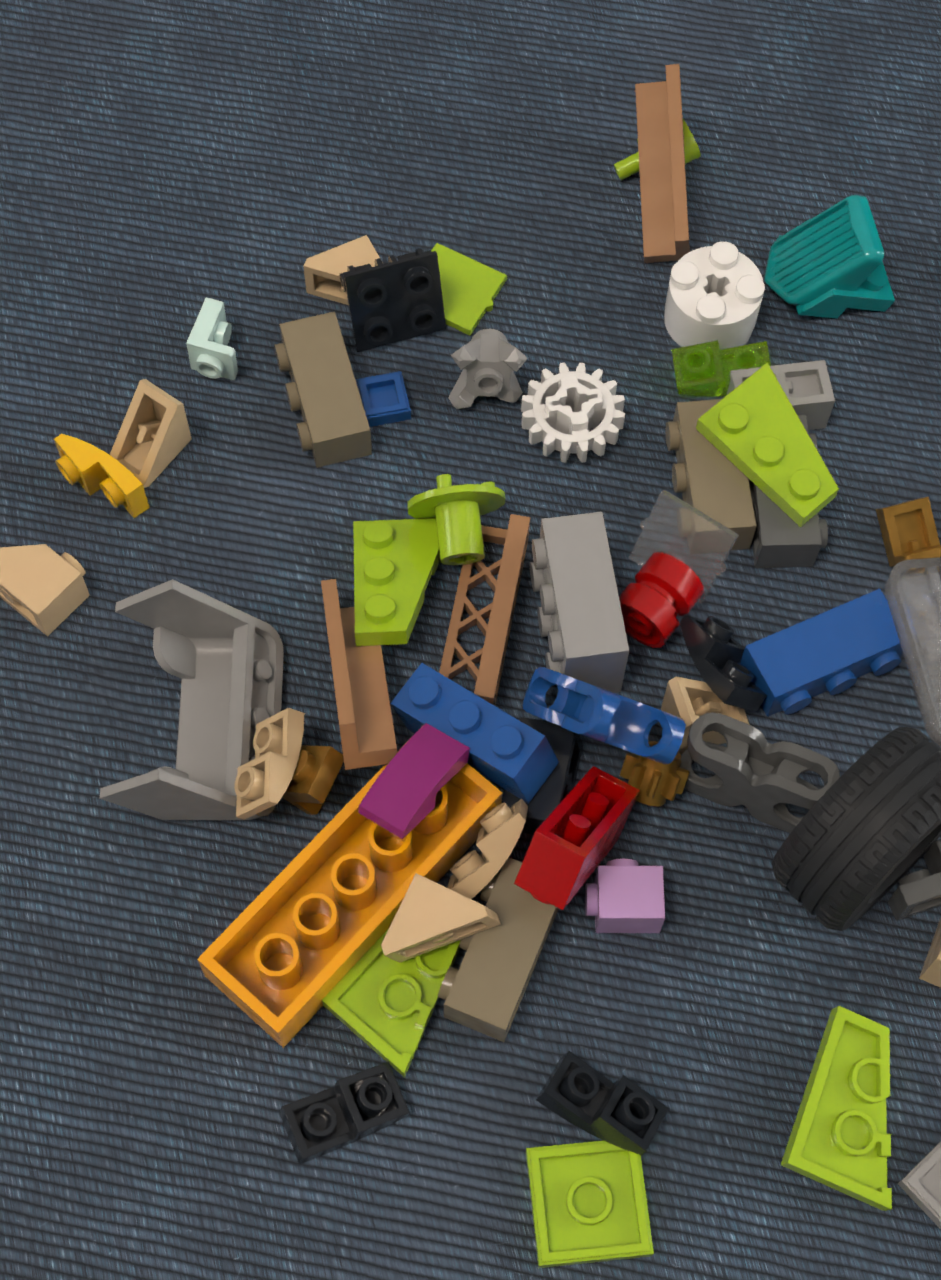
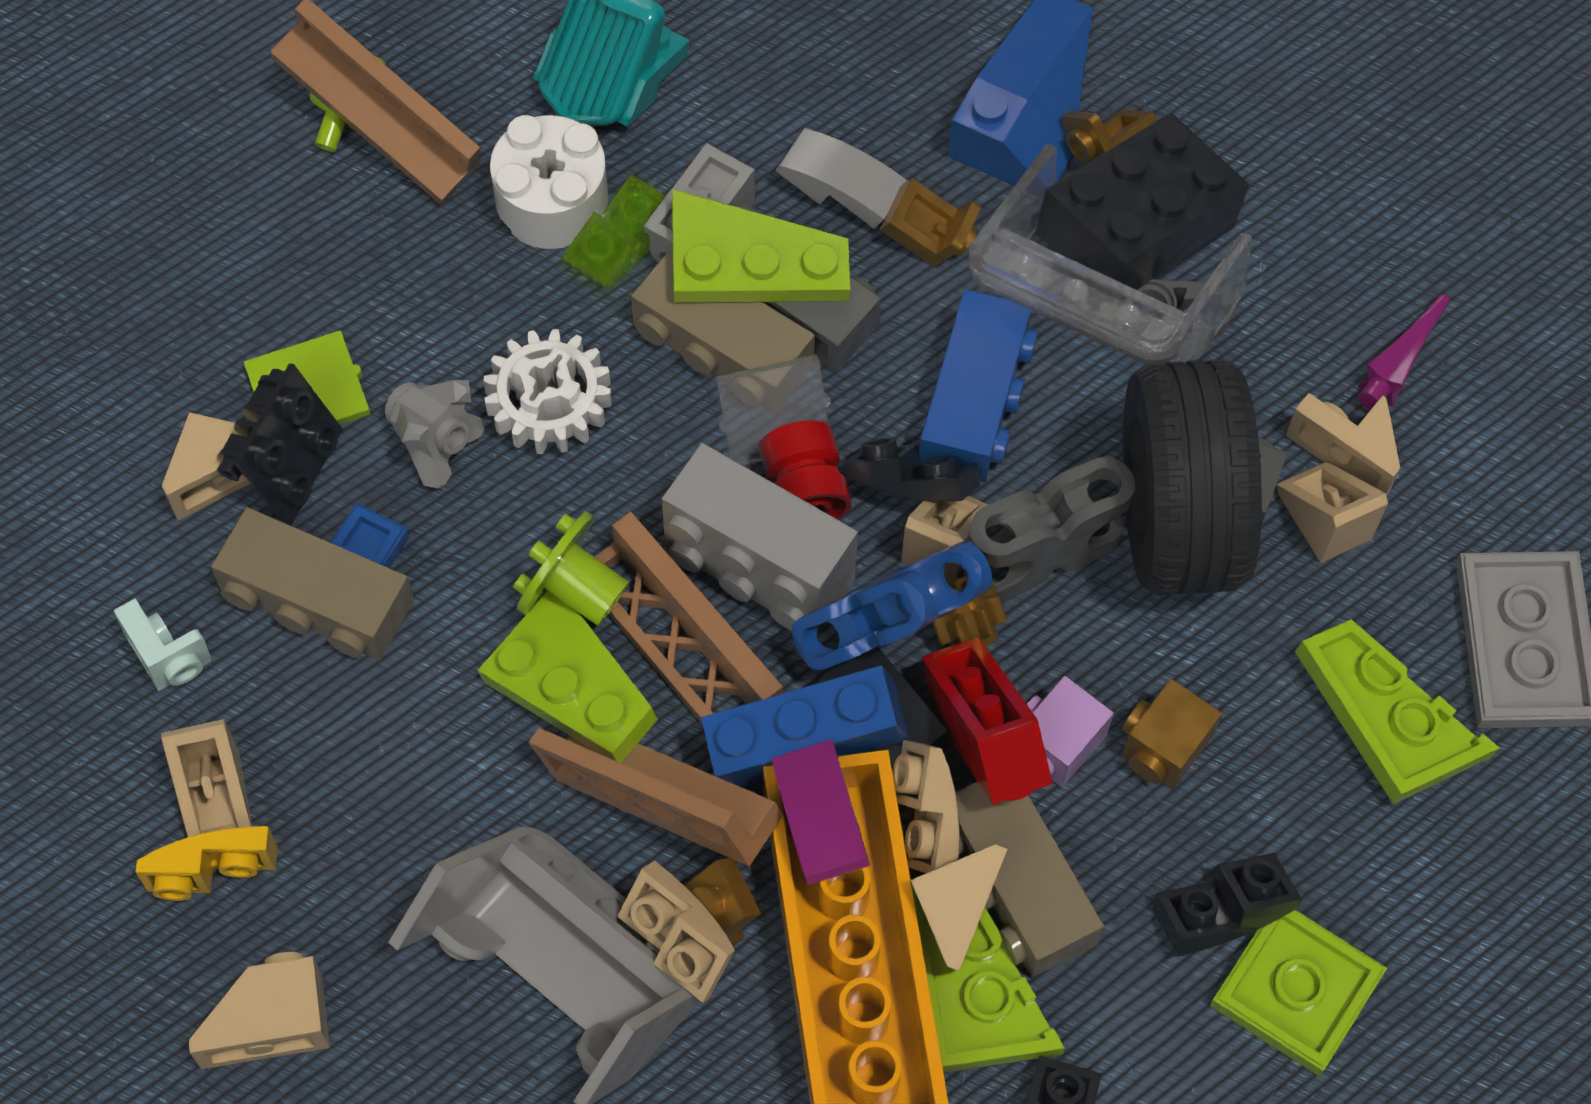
camera: 50 degrees left, 0 degrees up
(689, 970) = (1168, 734): none -> pearl gold brick
(893, 457) = (834, 168): none -> light grey slope

